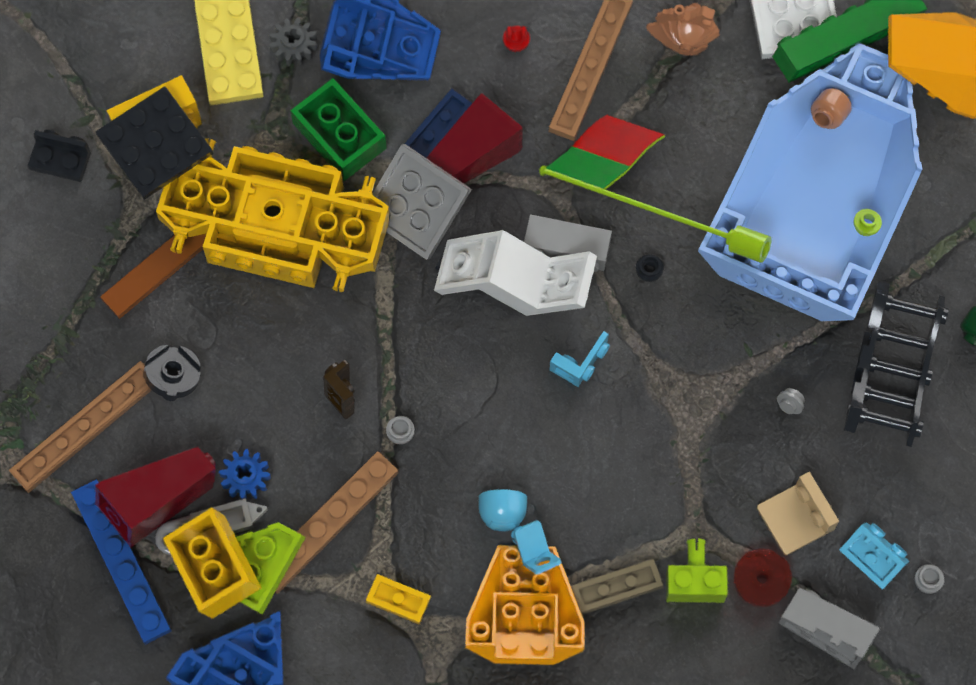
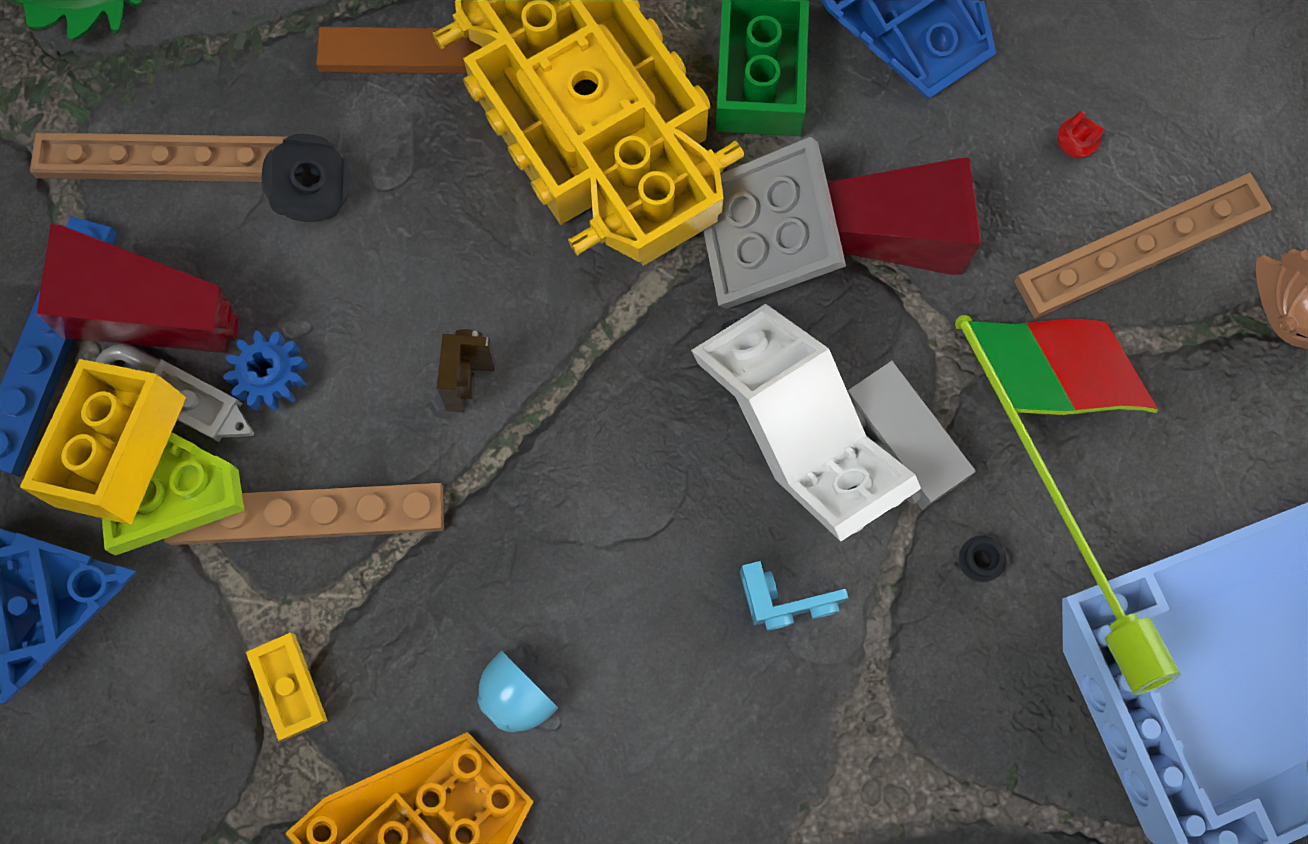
camera: 45 degrees right, 5 degrees up
(400, 430) = (492, 481): light grey plate -> none
(438, 123) = (883, 154): dark blue plate -> none
(534, 547) = (493, 786): medium azure bracket -> none

